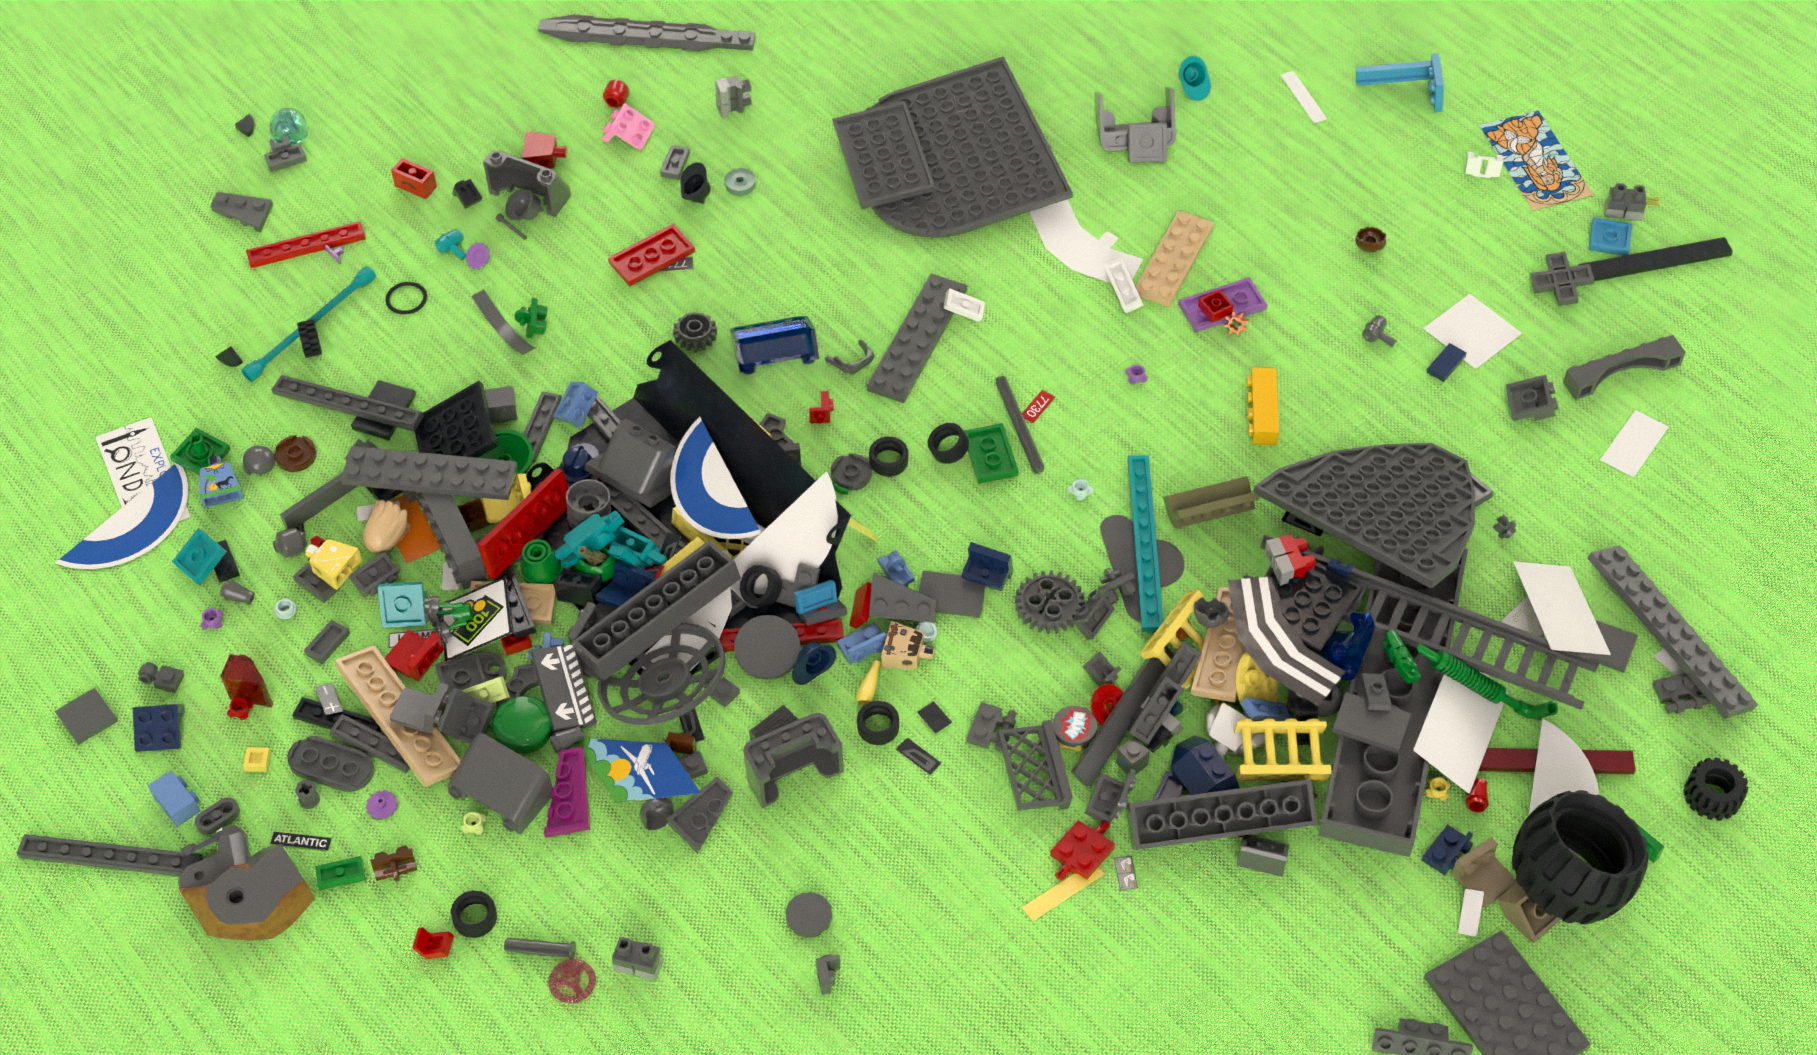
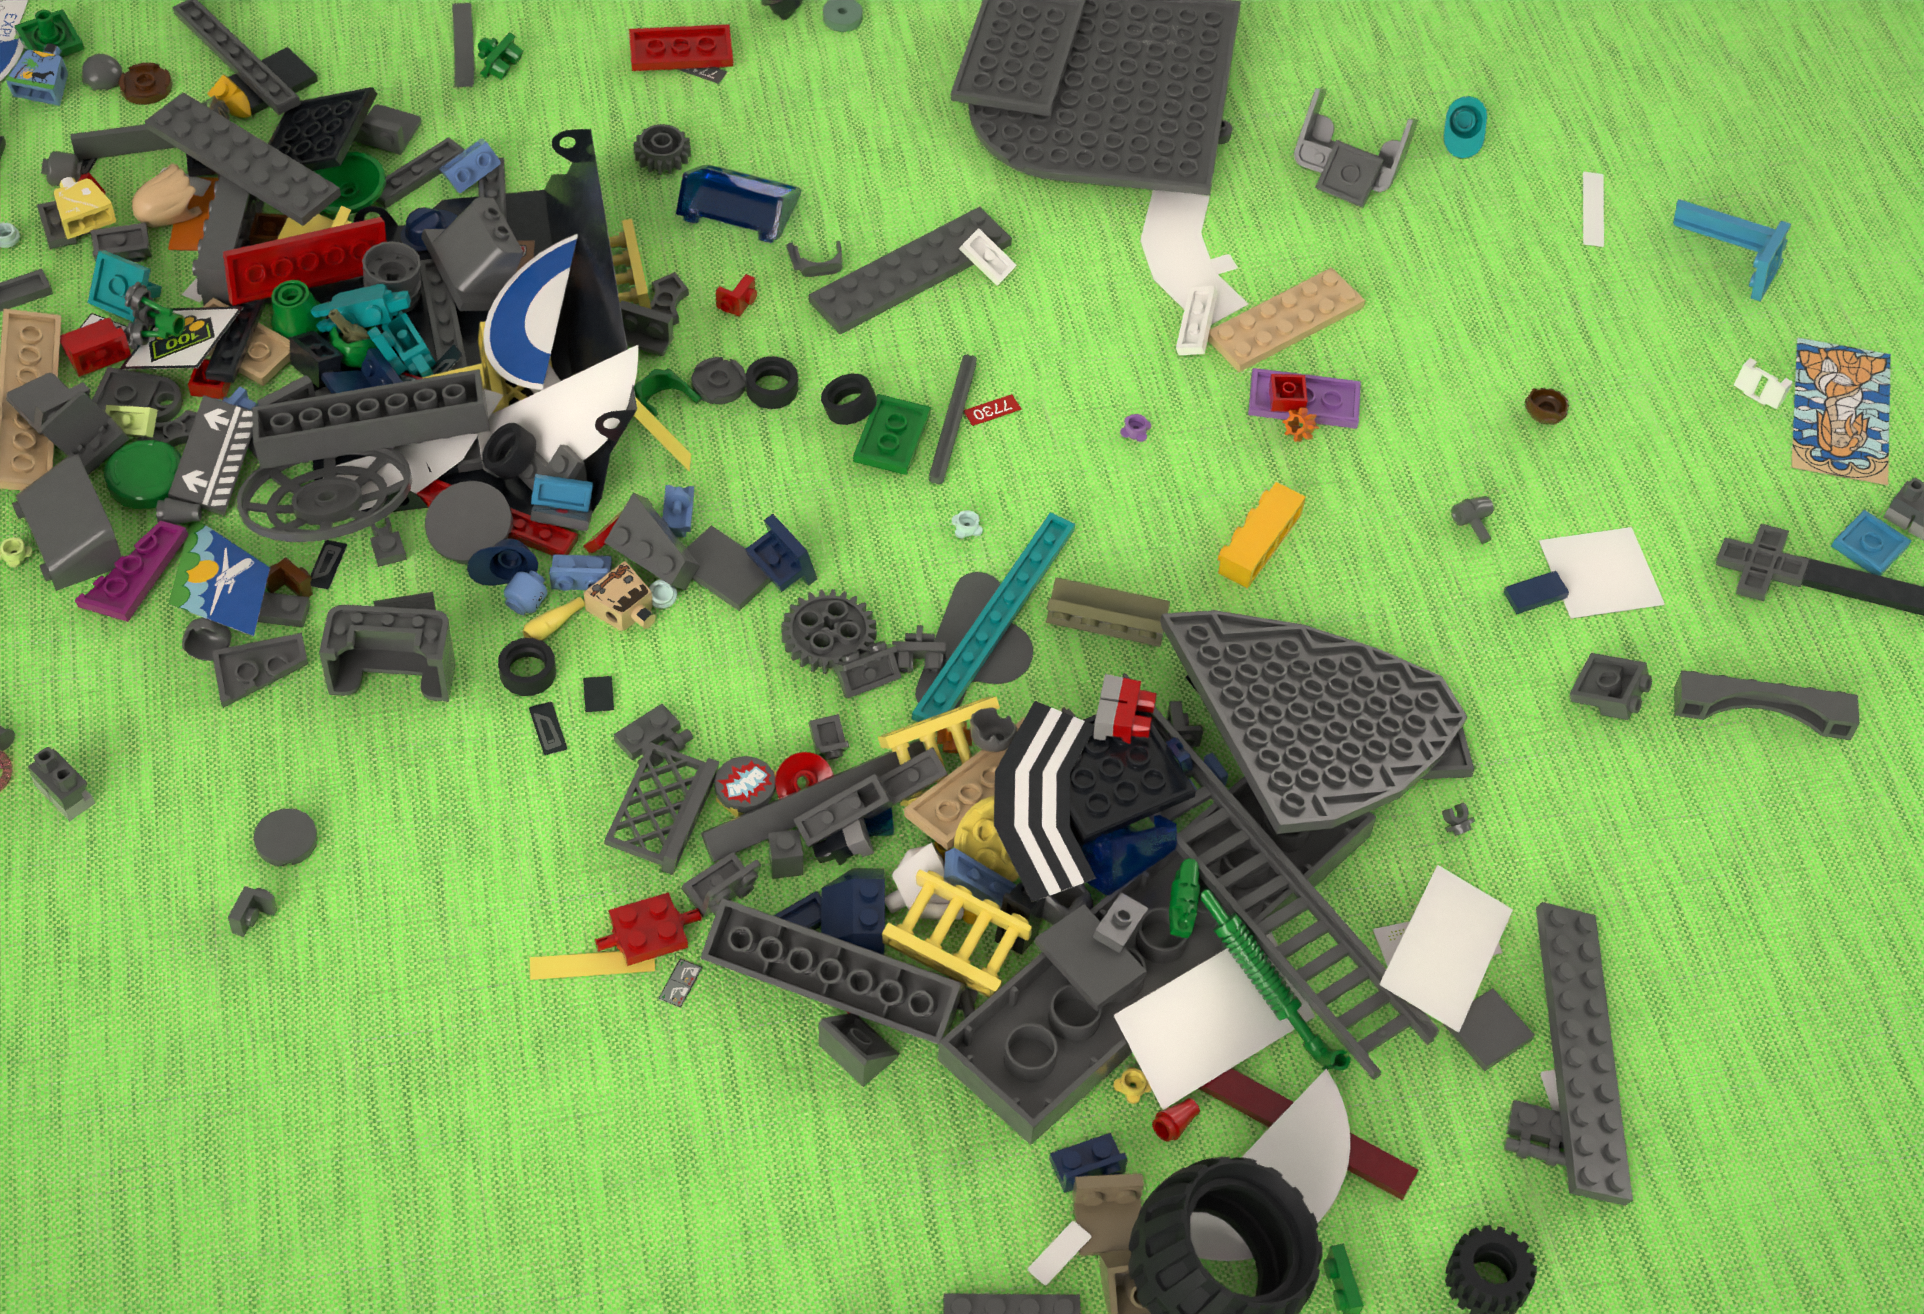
camera: 25 degrees right, 0 degrees up
(367, 432) = (232, 96): none -> yellow plate
(840, 675) = (525, 592): none -> medium blue head
(1634, 443) = (1713, 804): white sticker -> none

